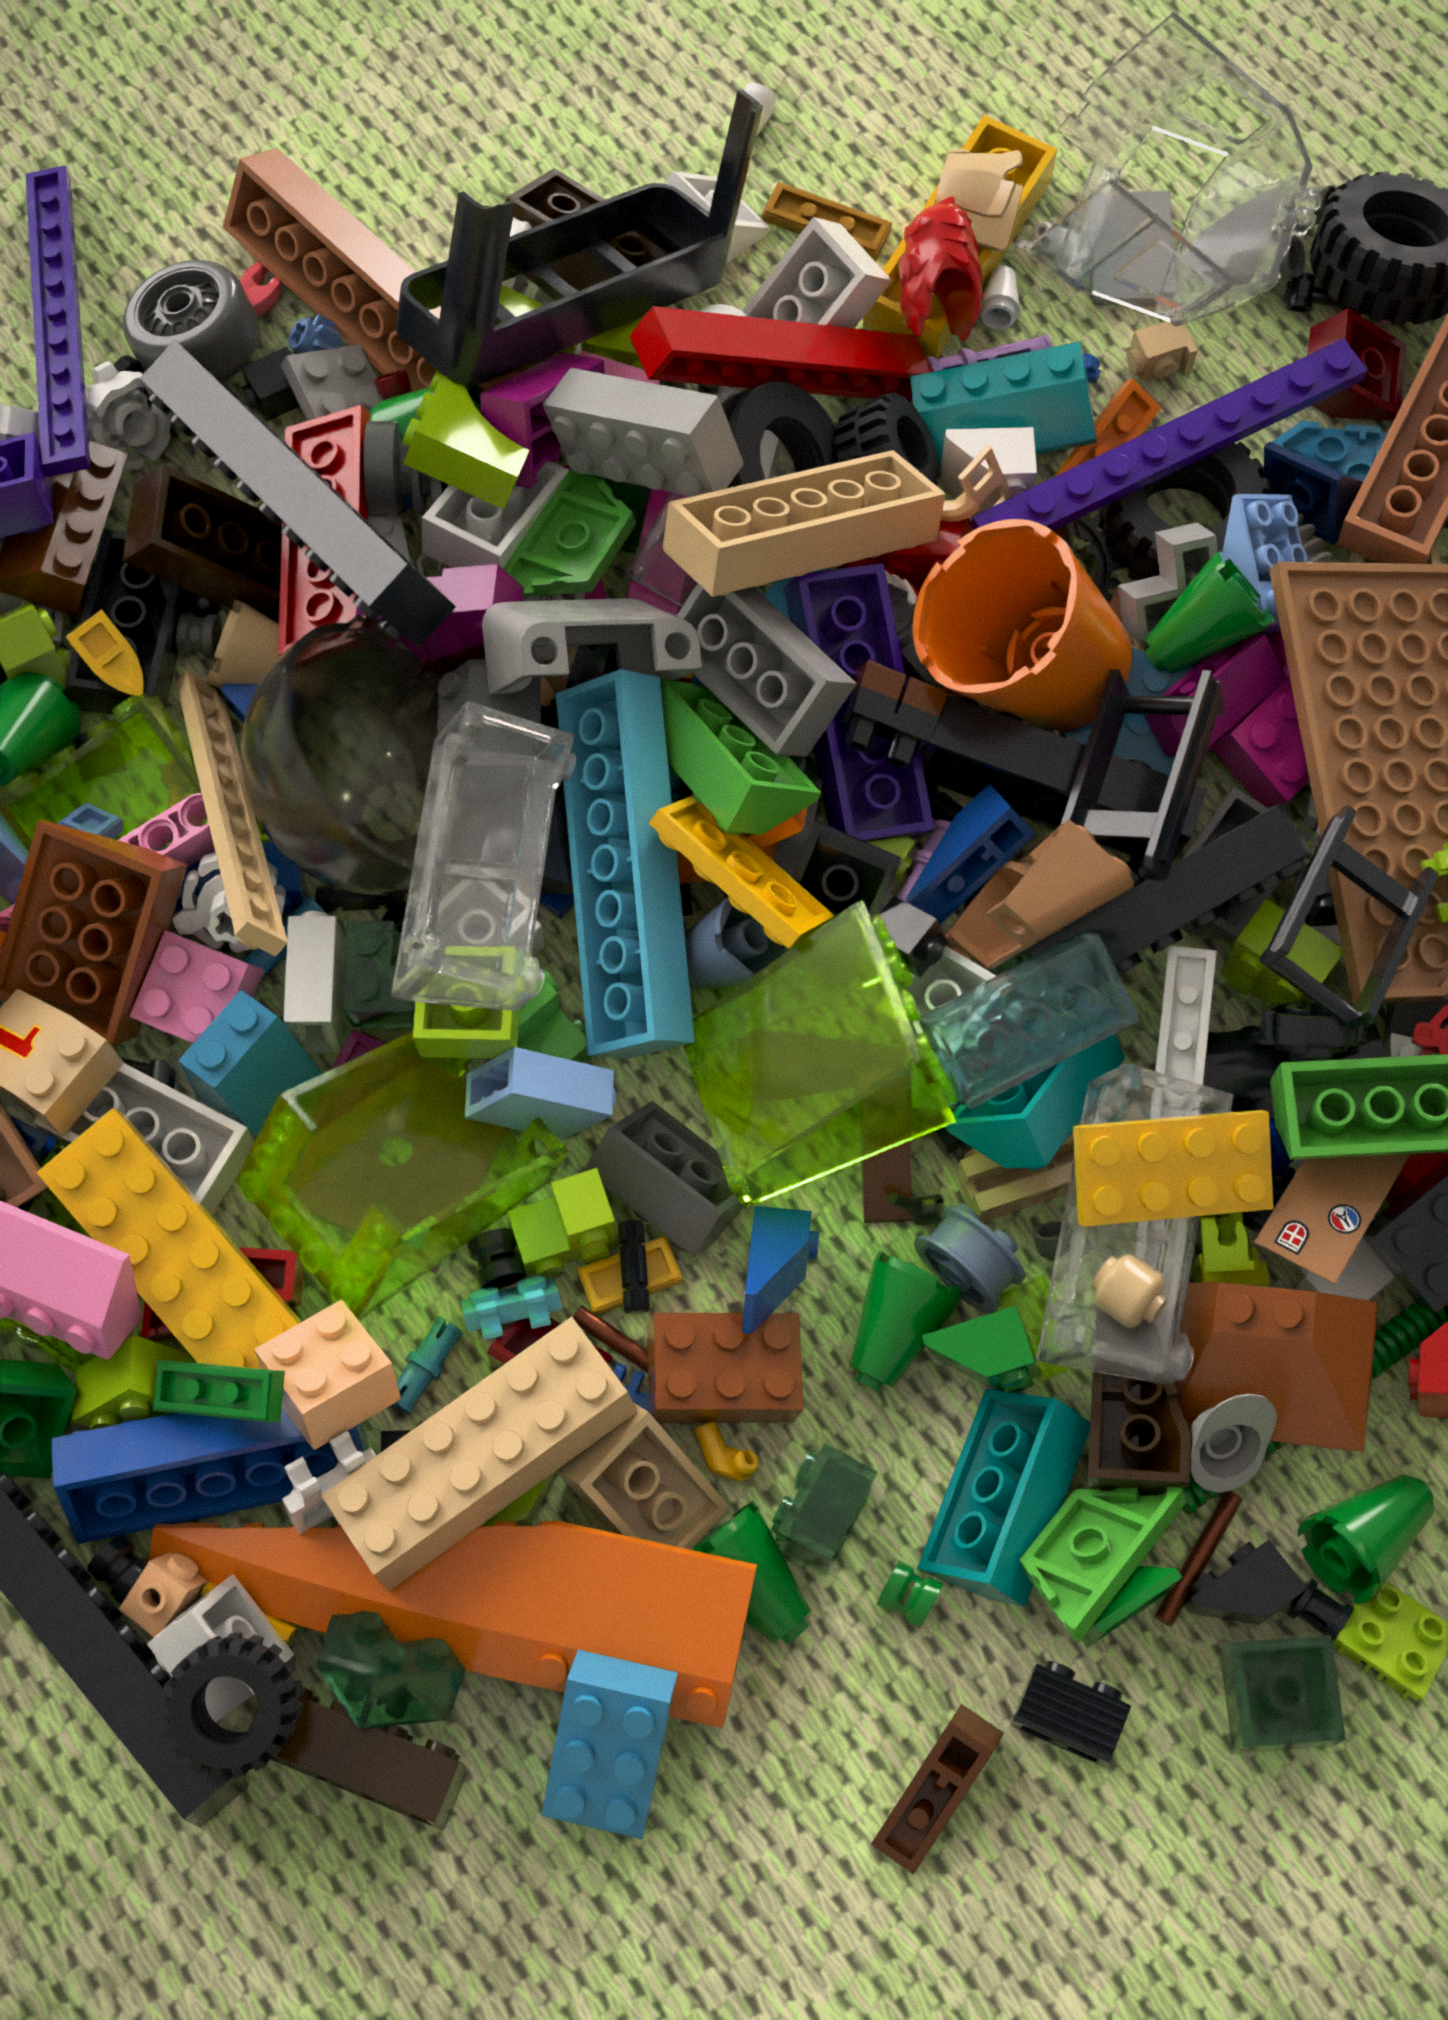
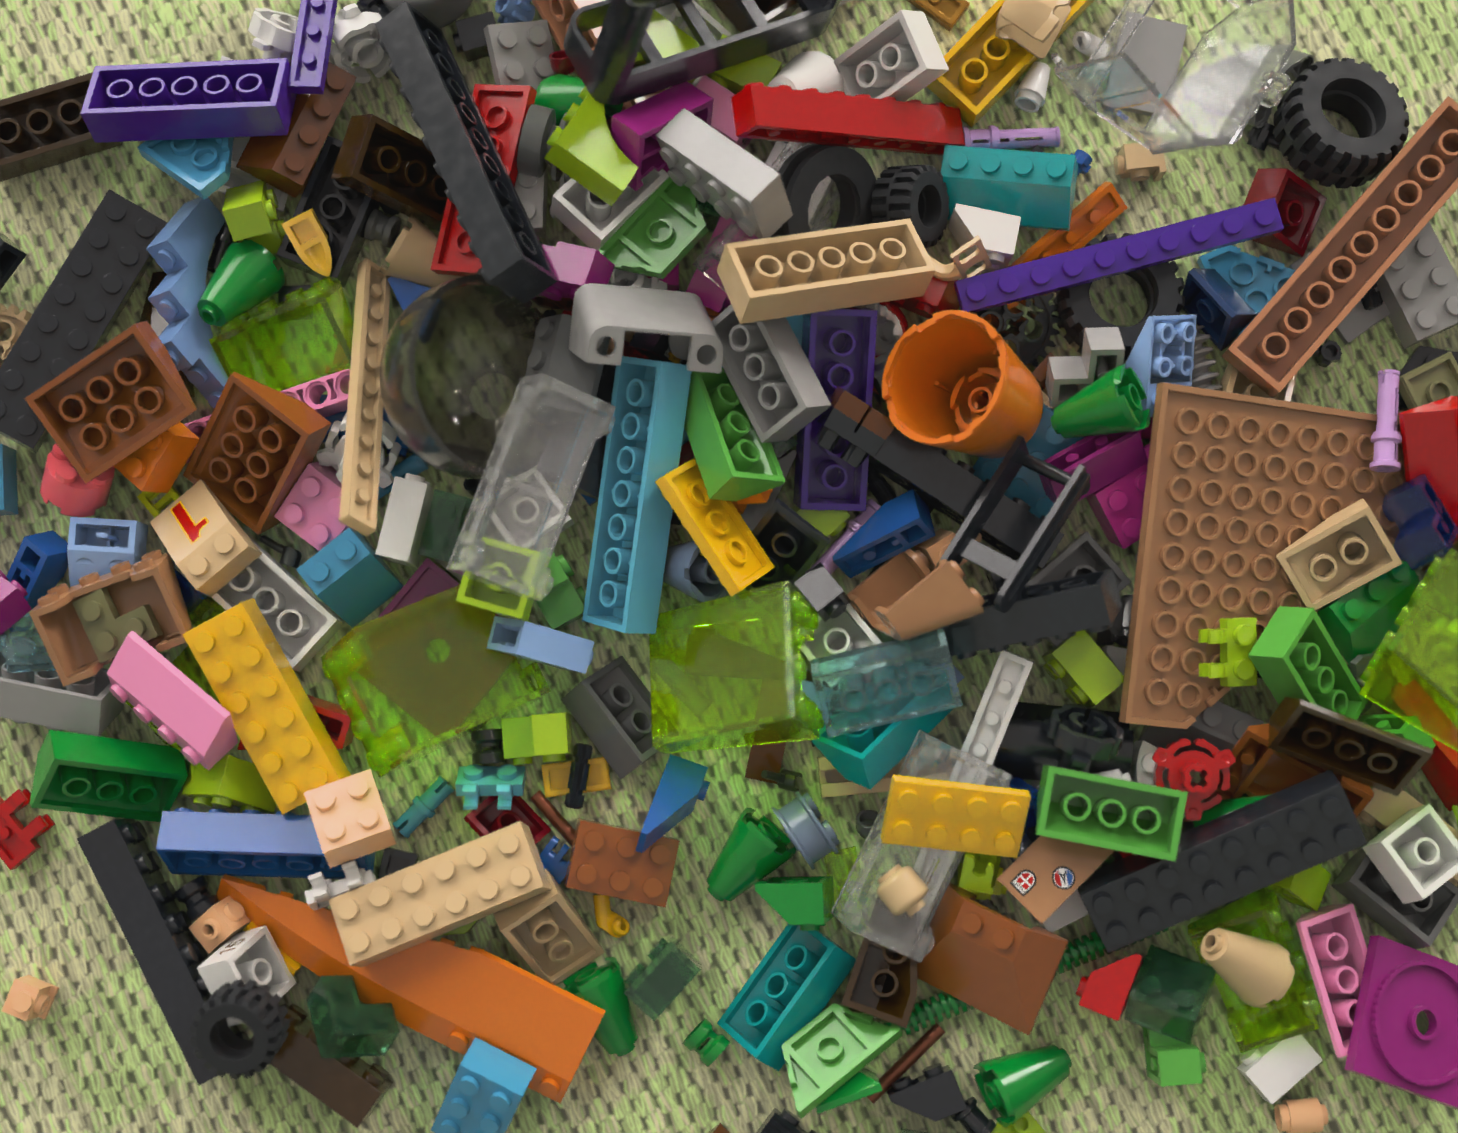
camera: 15 degrees right, 15 degrees up
(94, 820) = (275, 364): medium blue tile -> none
(219, 1391) = (275, 814): green tile -> none
(941, 261) = (988, 62): red head -> none
(1231, 1441) = (941, 1005): light grey piece -> none
(1404, 902) = (1175, 664): black piece -> none

